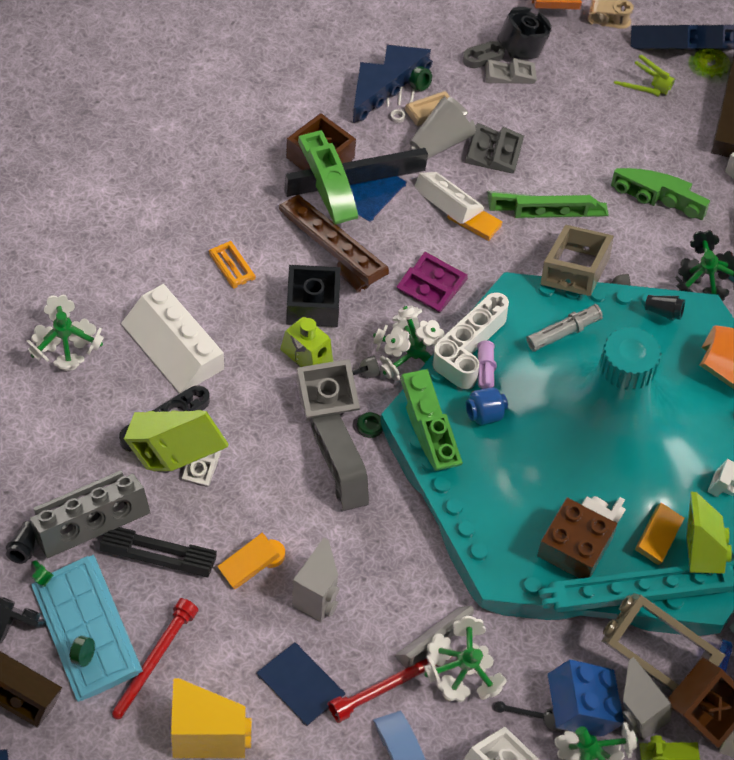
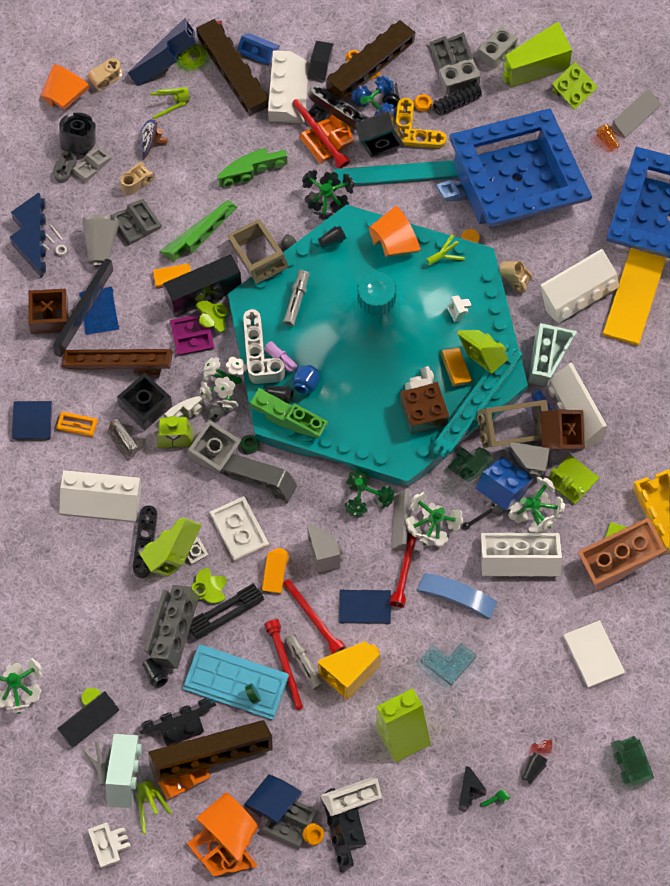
camera: 40 degrees left, 10 degrees up
(41, 575) = (187, 679): green hand -> none
(79, 332) = (45, 543): white plant -> none
(175, 516) = (211, 585): none -> lime plate
(177, 664) = (302, 659): none -> light grey pin
(196, 224) = (32, 419): none -> dark blue slope
(224, 686) = (333, 643): none -> red piece
(253, 321) = (121, 437): none -> clear smoke tile
(266, 491) = (239, 529): none -> white tile
(330, 176) = (81, 324): bright green slope -> none
(352, 339) = (190, 407): none -> white slope
(420, 78) = (50, 215): dark green tile -> none
(421, 109) = (74, 229): tan tile -> none
(435, 557) = (358, 482): none -> dark green plant
(447, 196) = (144, 275): white slope -> none
(448, 398) = (282, 392): none -> black cone
(467, 280) = (212, 315): none -> lime plate
(487, 243) = (202, 284): none -> black brick
(535, 112) = (138, 177): none -> tan piece
(572, 644) = (471, 463): none -> clear green hinge
(594, 95) = (151, 135): none -> shield

